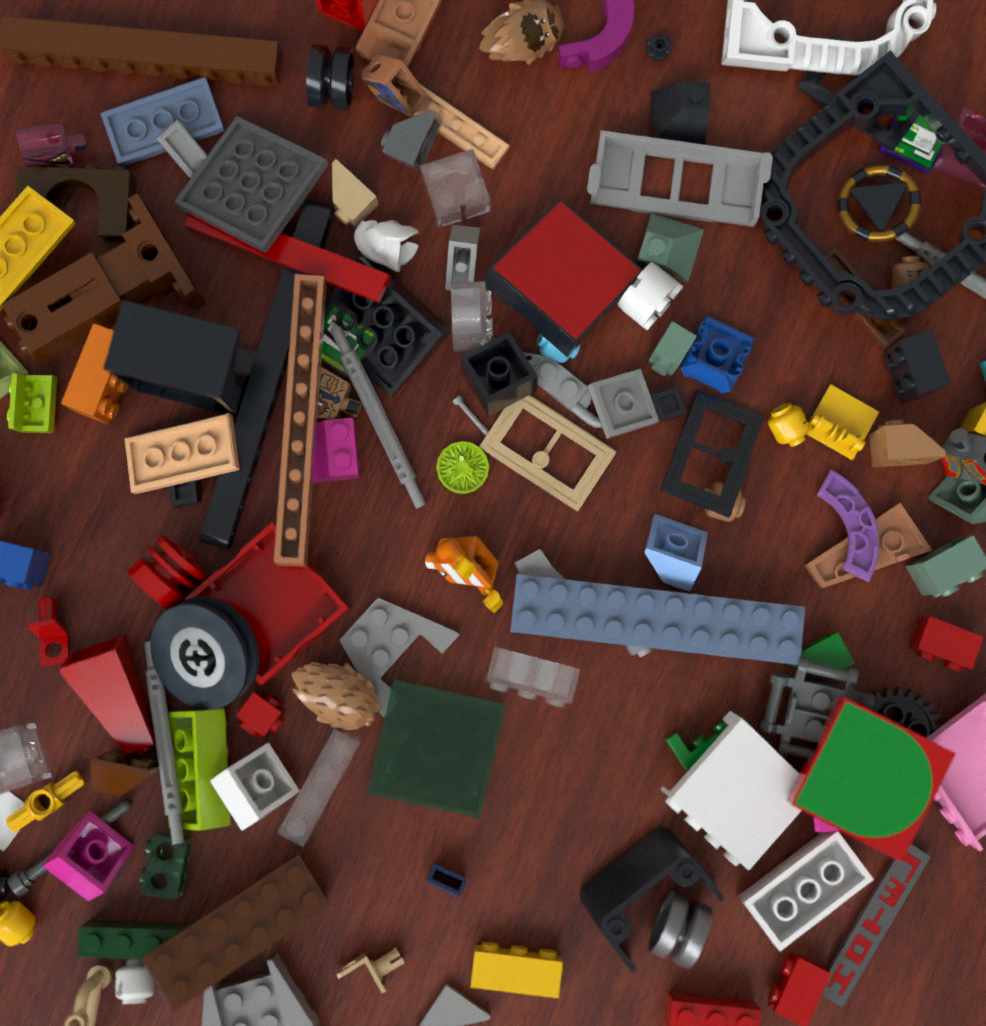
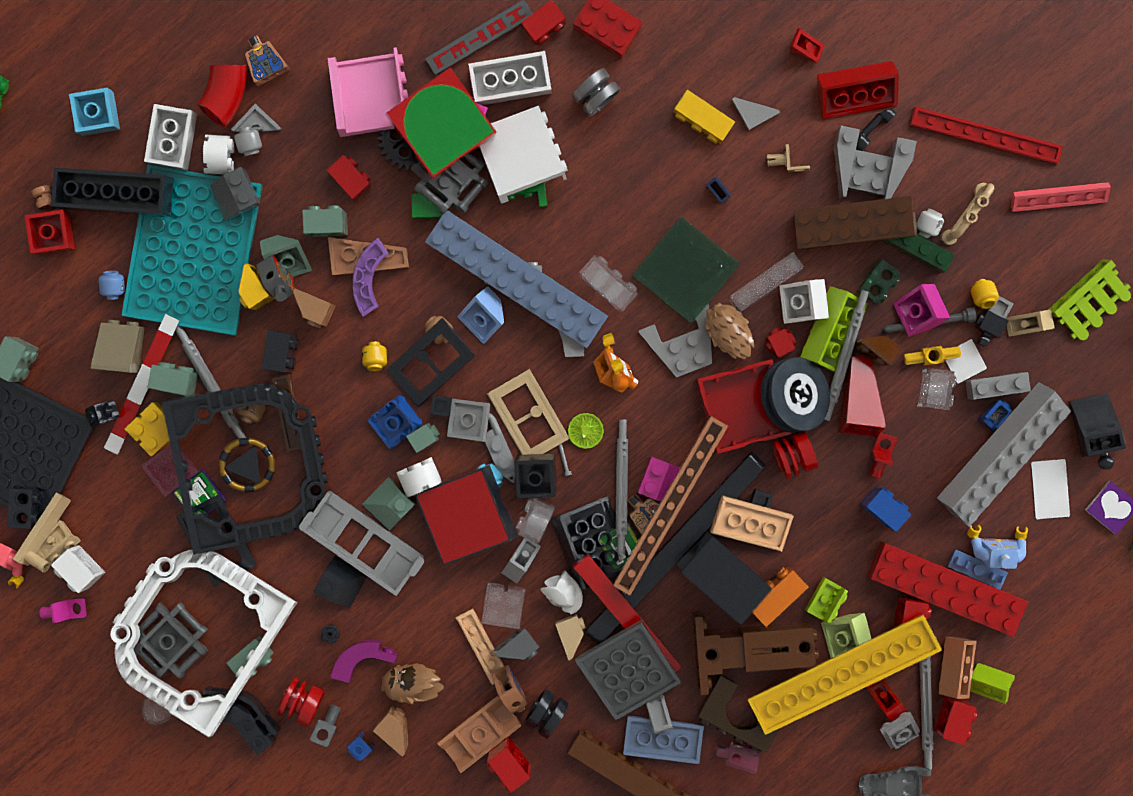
camera: 150 degrees left, 5 degrees up
(633, 875) = (608, 137): black windscreen -> none
(841, 422) = (340, 342): yellow hinge -> none

